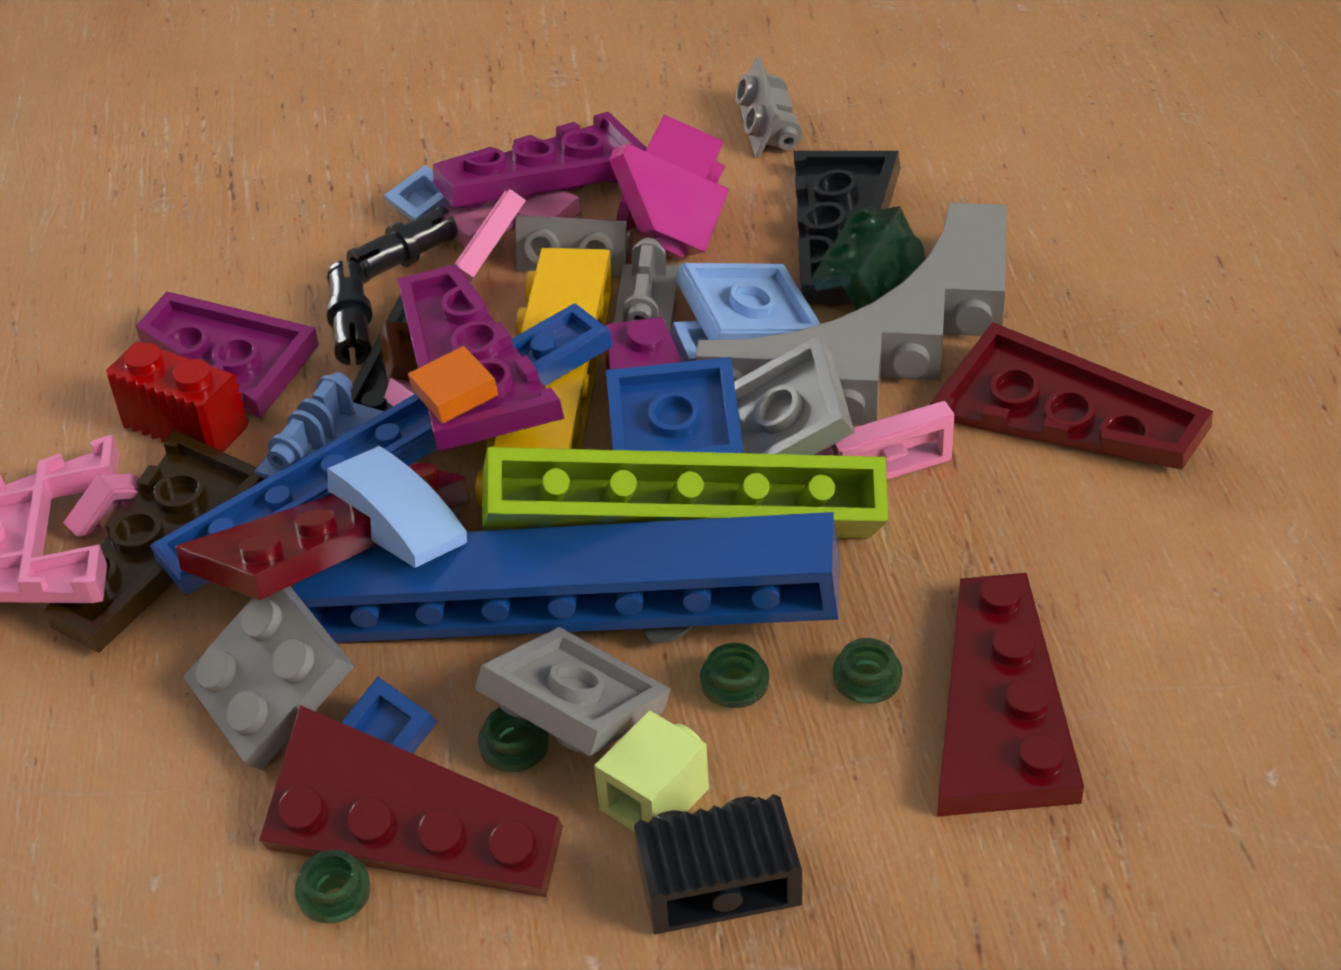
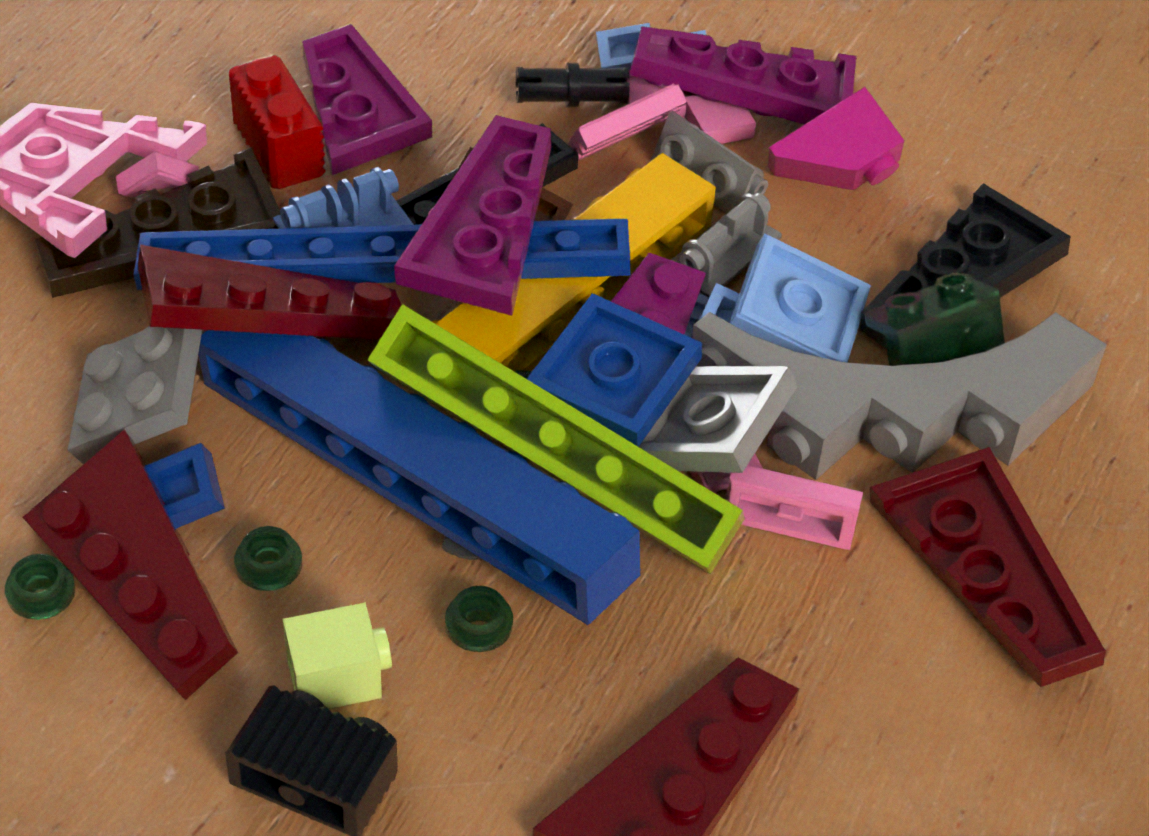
camera: 30 degrees right, 5 degrees up
(349, 312) = (473, 119): black pin -> none
(402, 507) = (319, 312): light blue slope -> none
(453, 384) = (439, 234): orange tile -> none
(571, 690) = (334, 548): light grey plate -> none
(668, 201) = (804, 172): dark pink slope -> none
(767, 110) = (999, 138): light grey hinge -> none
(867, 671) = (588, 670): clear green plate -> none

